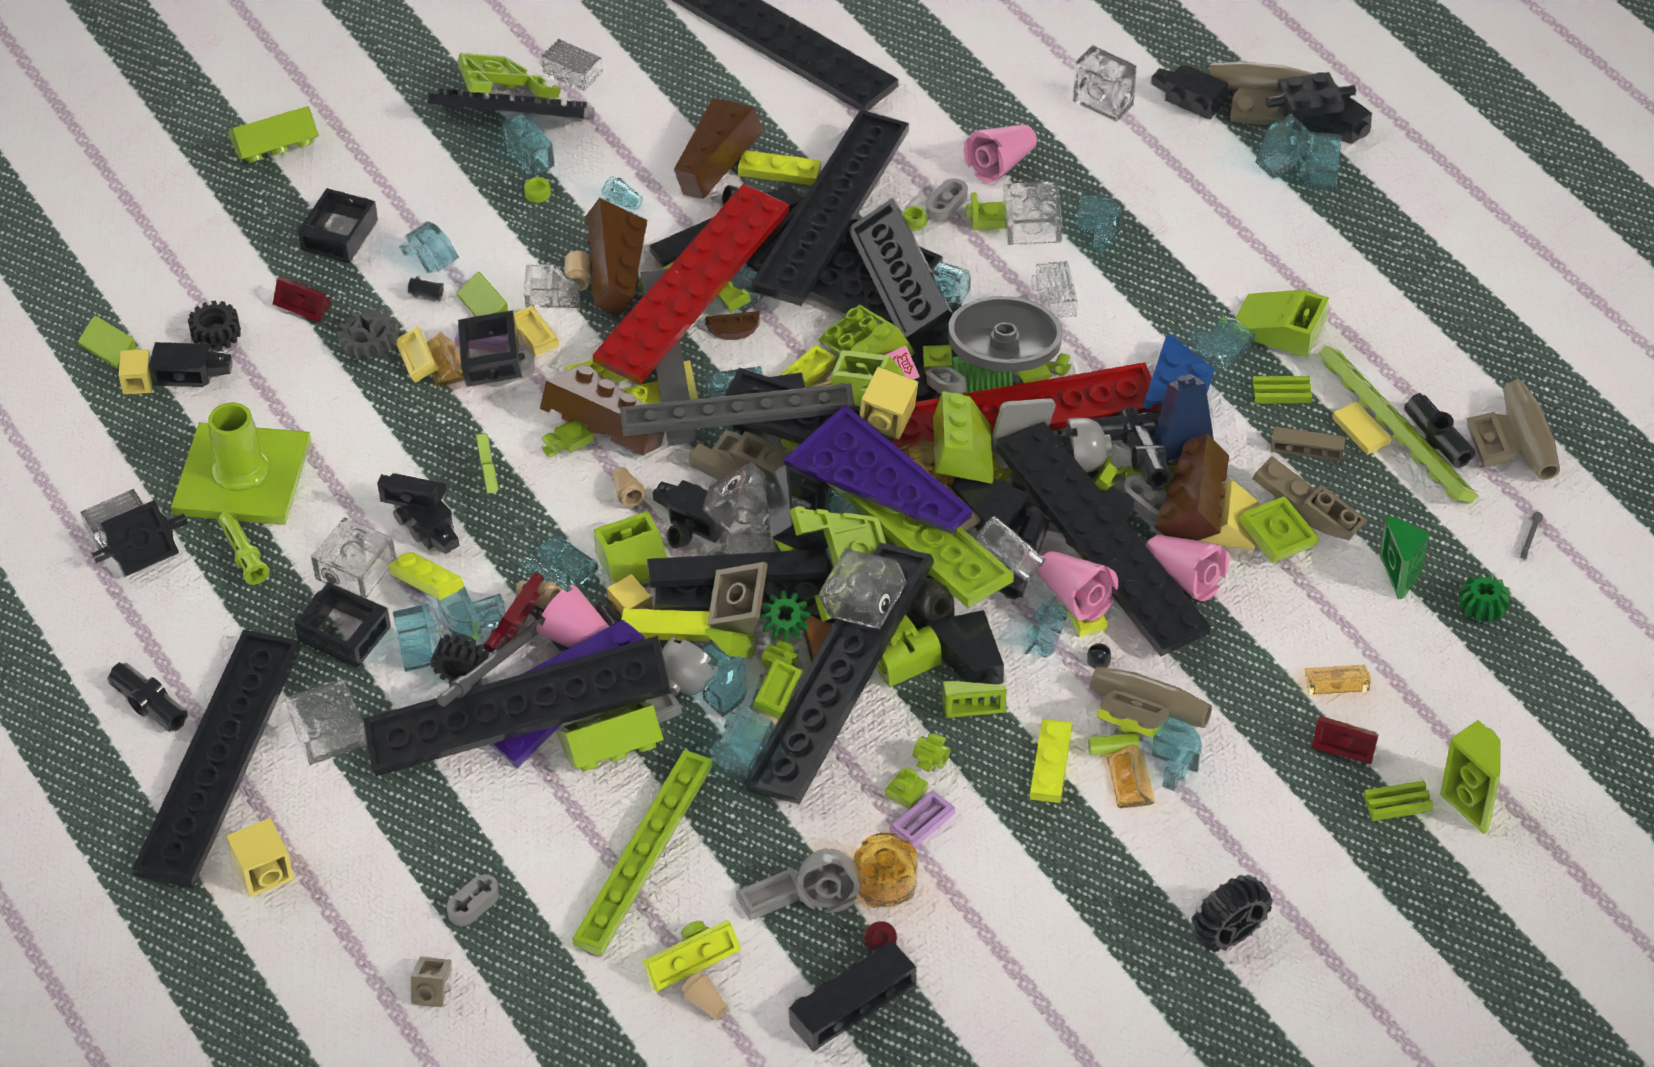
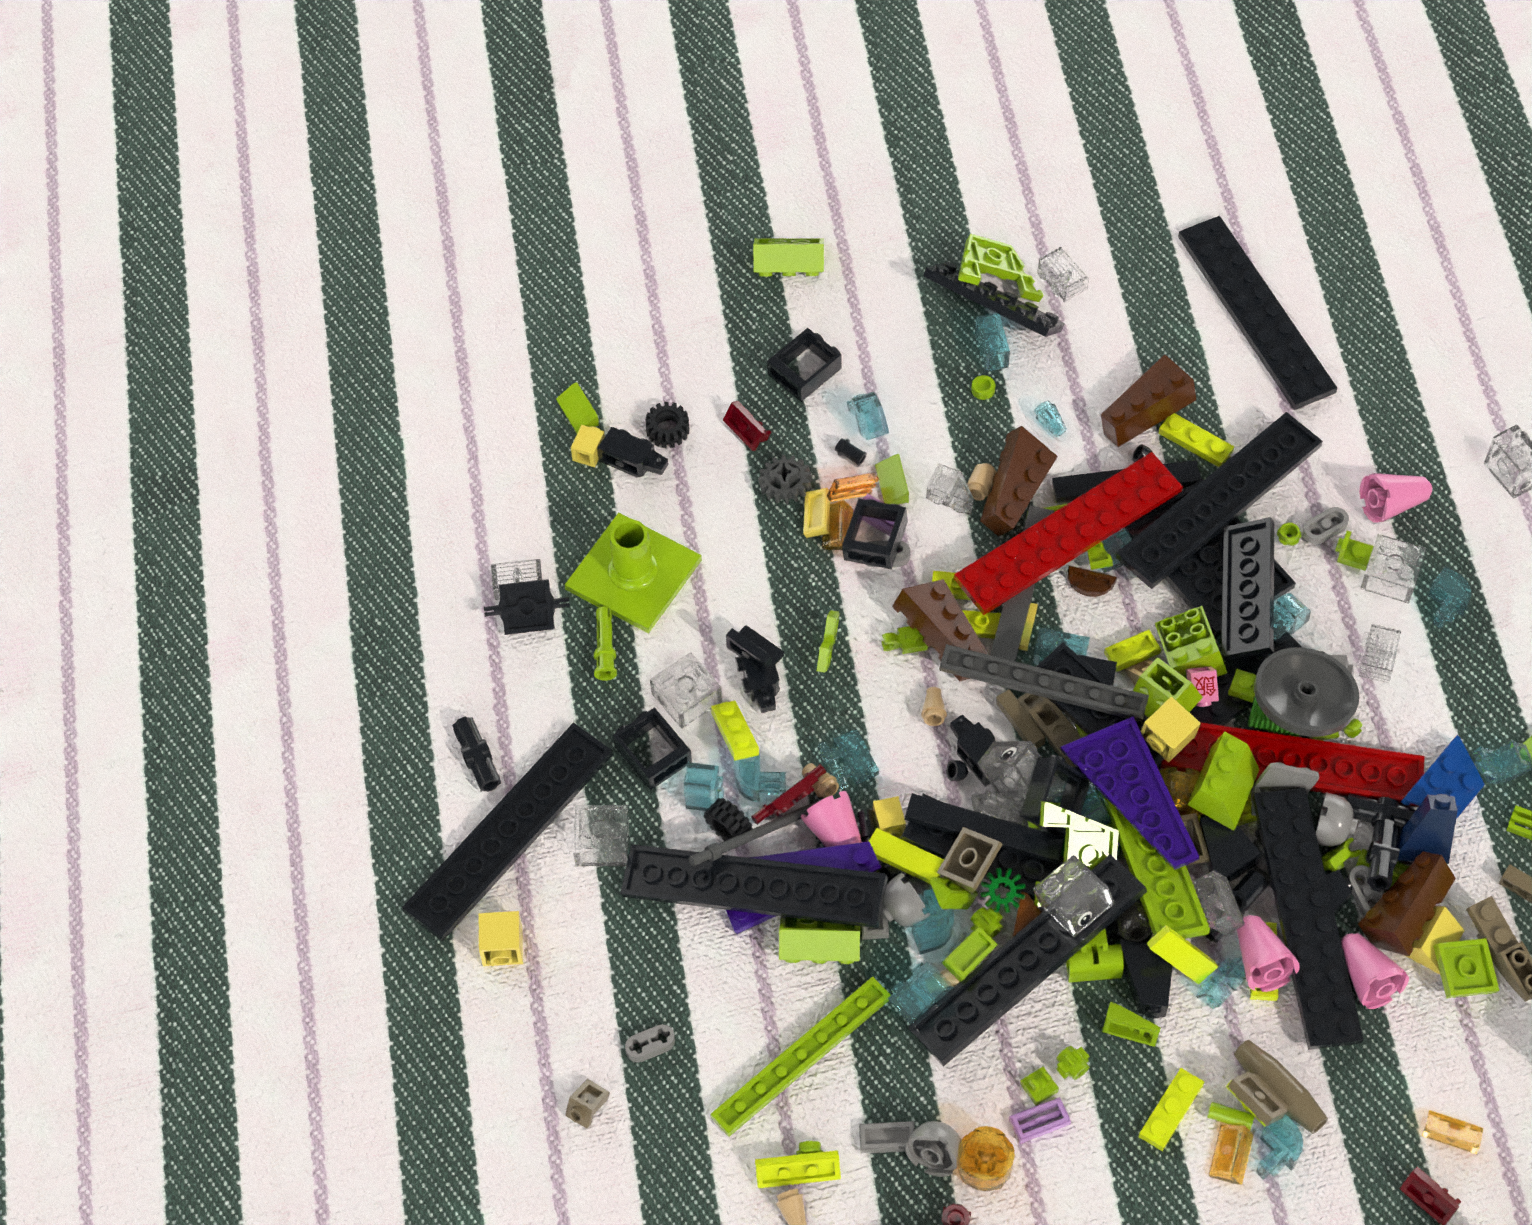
camera: 25 degrees right, 10 degrees up
(445, 317) = (852, 487): none -> clear orange tile
(535, 331) = (922, 524): light yellow tile -> none
(627, 546) = (909, 770): lime slope -> none
(945, 380) = (1240, 712): light grey plate -> none
(996, 609) = (1182, 954): none -> neon yellow tile
(1099, 655) = (1254, 1029): black hinge -> none

